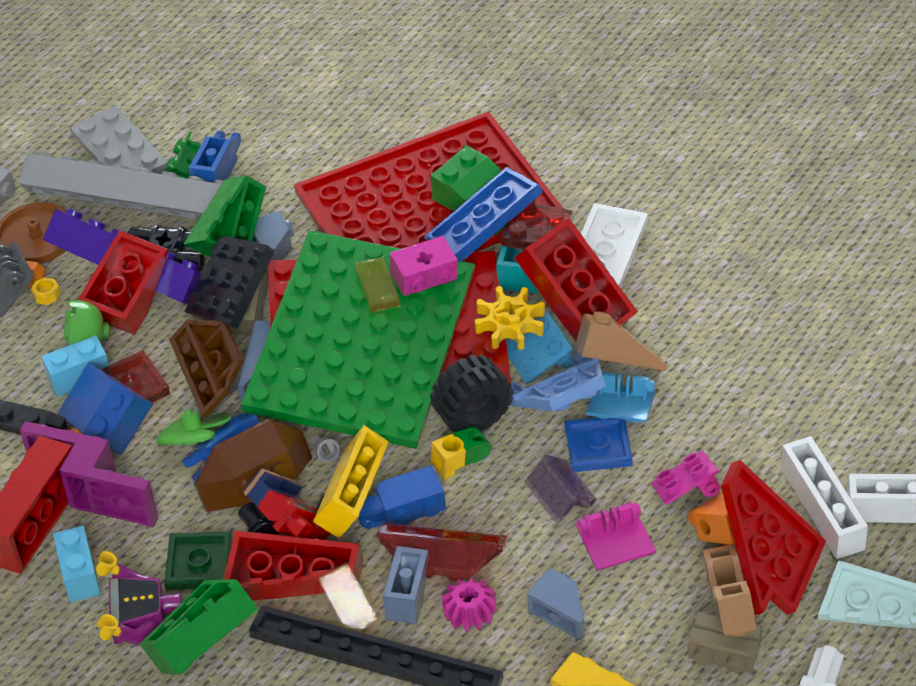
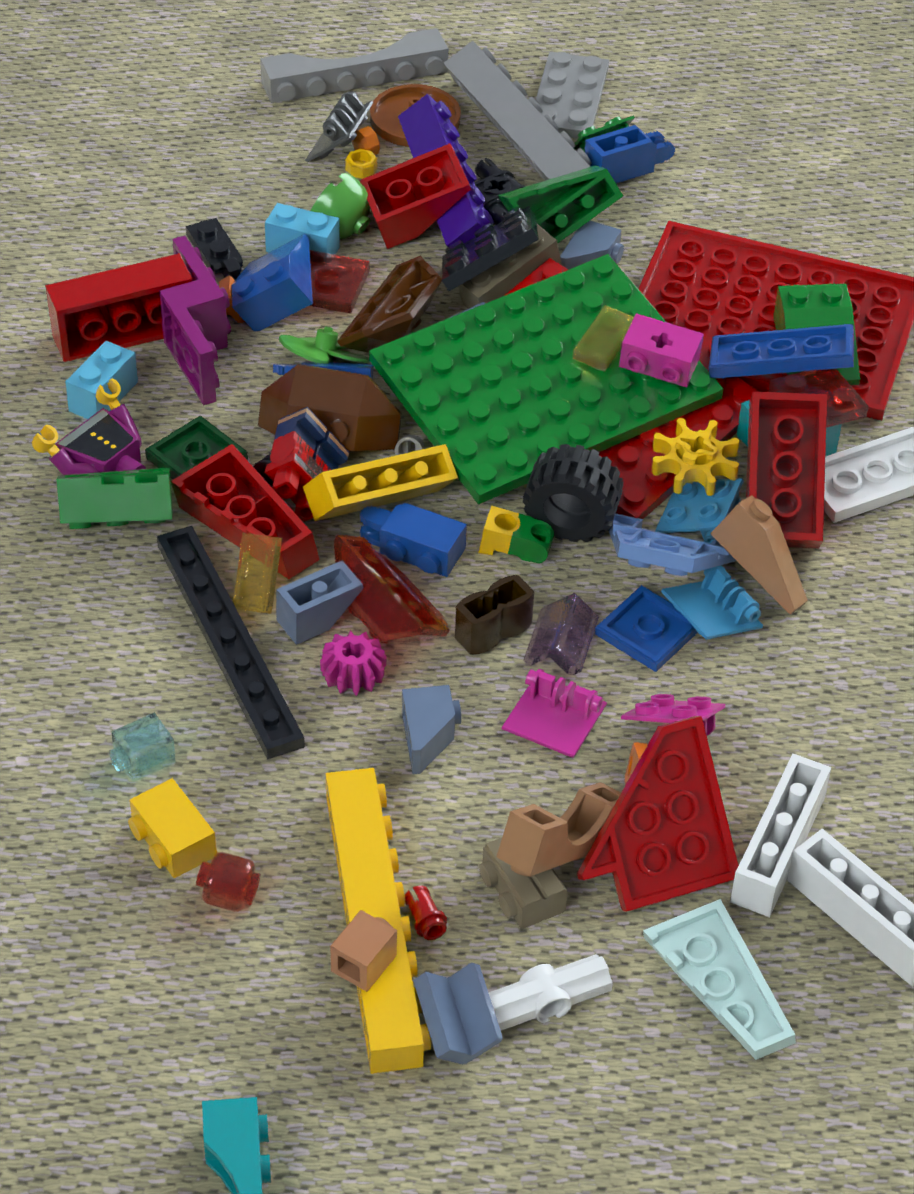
camera: 40 degrees right, 0 degrees up
(515, 505) = (494, 614): none -> dark brown brick

